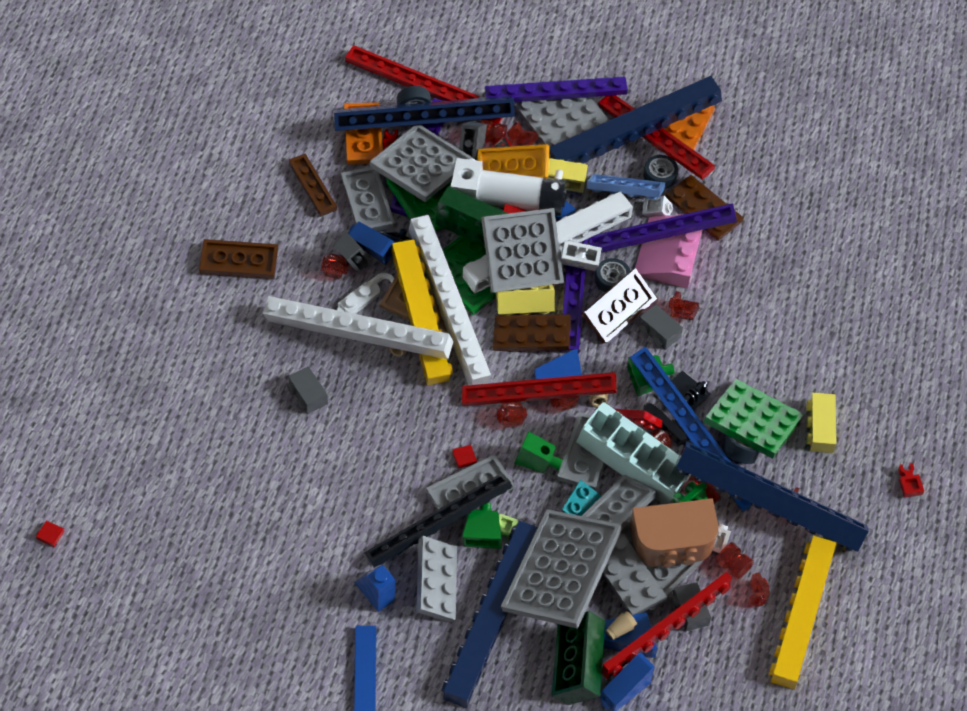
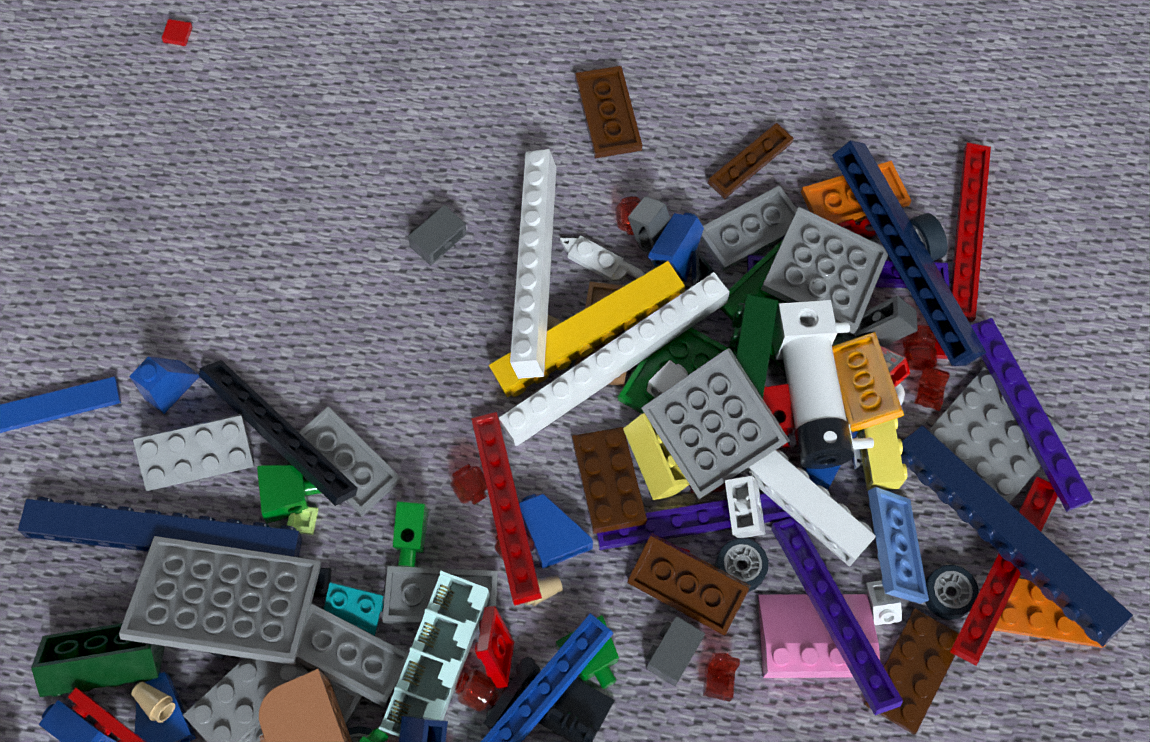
camera: 75 degrees right, 10 degrees up
(464, 456) = (394, 443): red tile -> none

